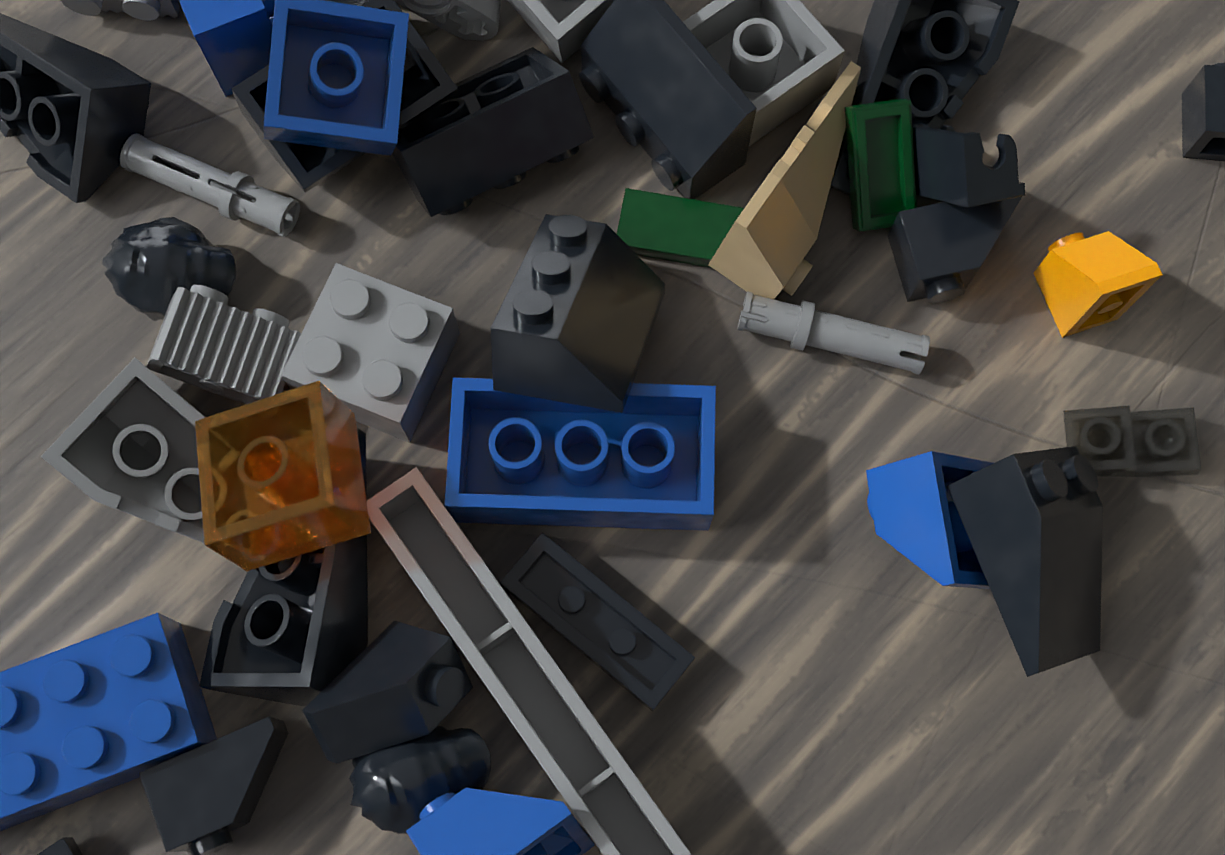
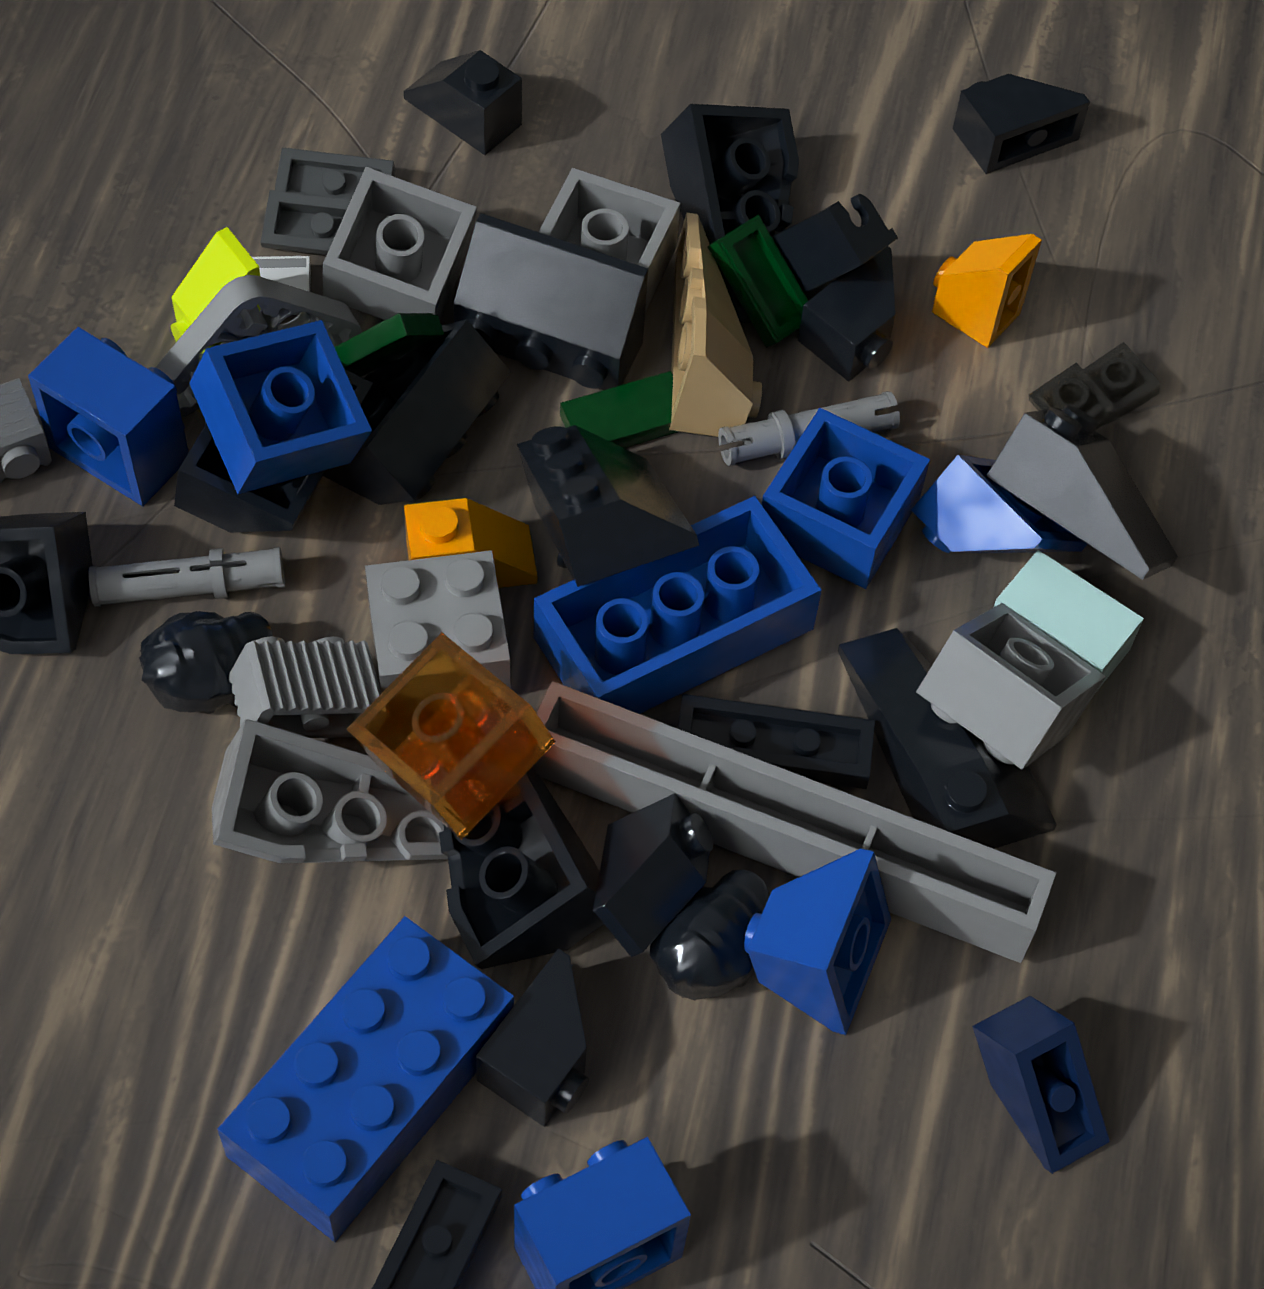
camera: 35 degrees left, 15 degrees down
(449, 276) = (470, 527): none -> light orange slope
(489, 53) = (388, 341): none -> dark green tile
(746, 729) = (937, 763): none -> black wedge
(809, 423) = (845, 496): none -> blue brick
(832, 705) = (1009, 685): none -> light grey brick
(934, 664) = (1072, 612): none -> light aqua brick

